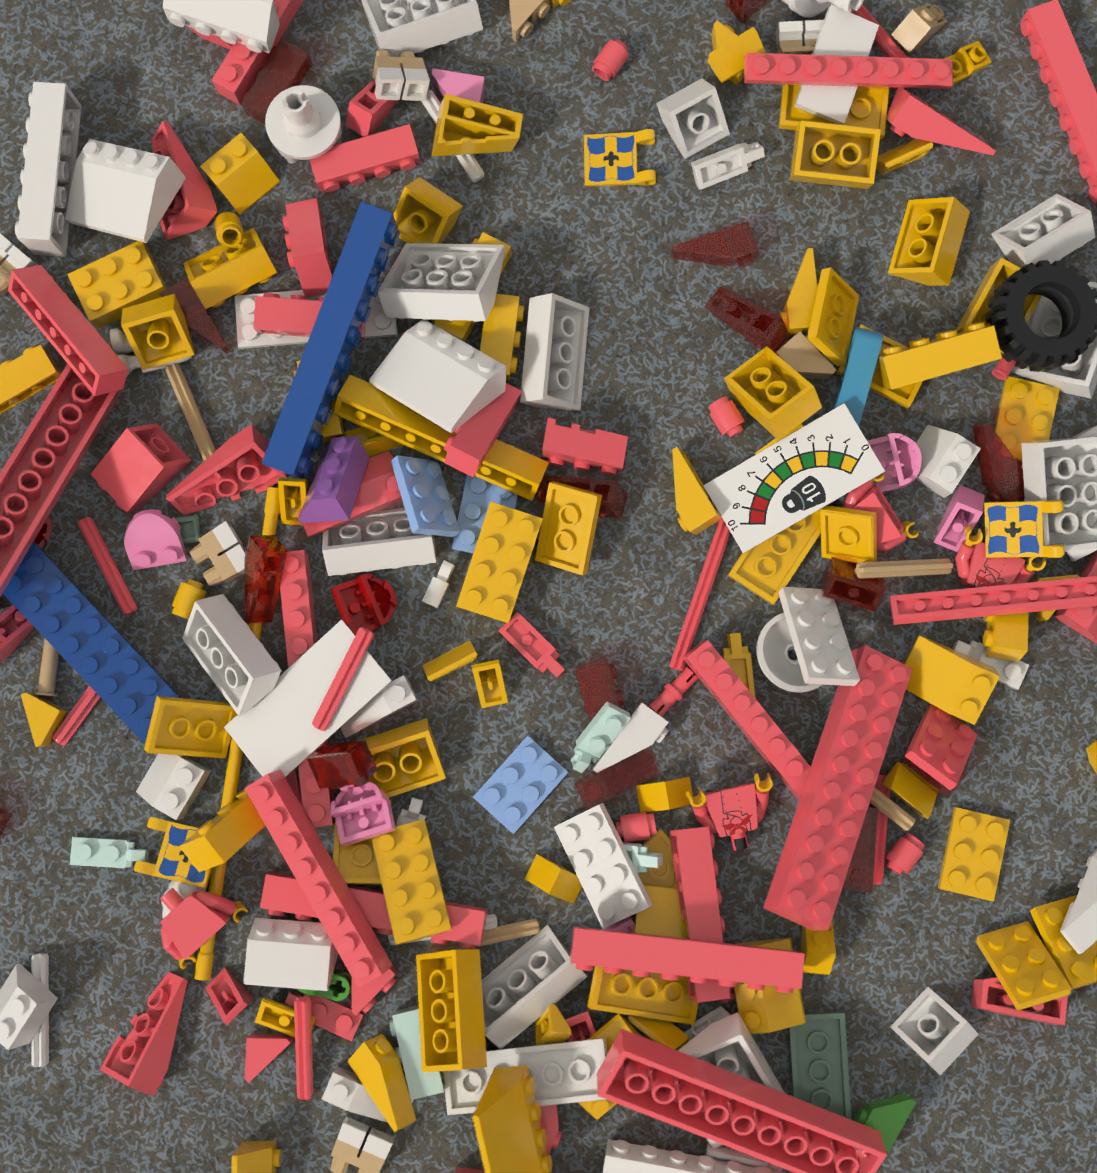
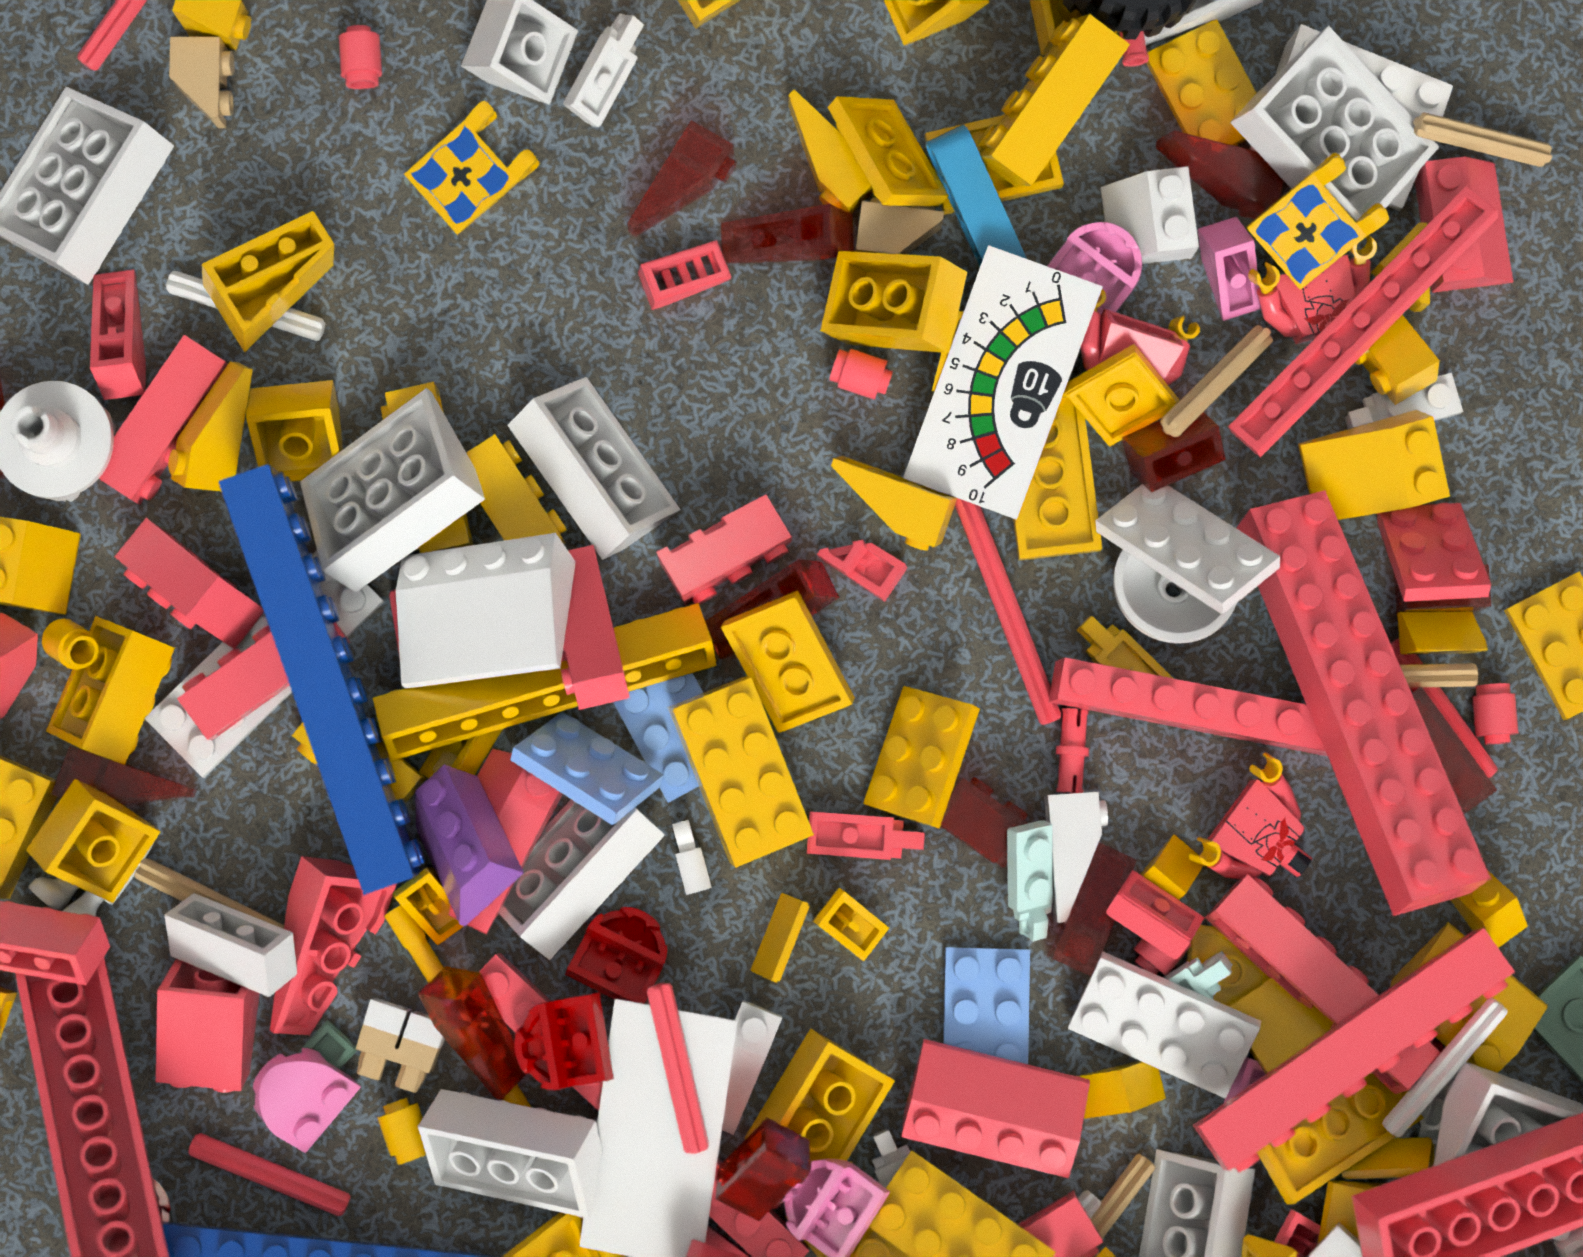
camera: 45 degrees left, 0 degrees up
(181, 437) = (231, 944): none -> white brick
(299, 620) = (565, 1043): none -> red slope
(383, 183) = (212, 438): none -> yellow slope
(400, 76) = (123, 286): white hips -> none
(459, 84) = (204, 238): bright pink slope -> none
(484, 835) = (995, 1108): none -> coral slope
(595, 630) = (921, 756): none -> yellow plate
(644, 807) = (1154, 915): none -> coral slope
(648, 515) = (866, 566): none -> coral slope
(674, 283) = (688, 287): none -> coral slope
(726, 1007) = (1444, 1067): none -> white axle

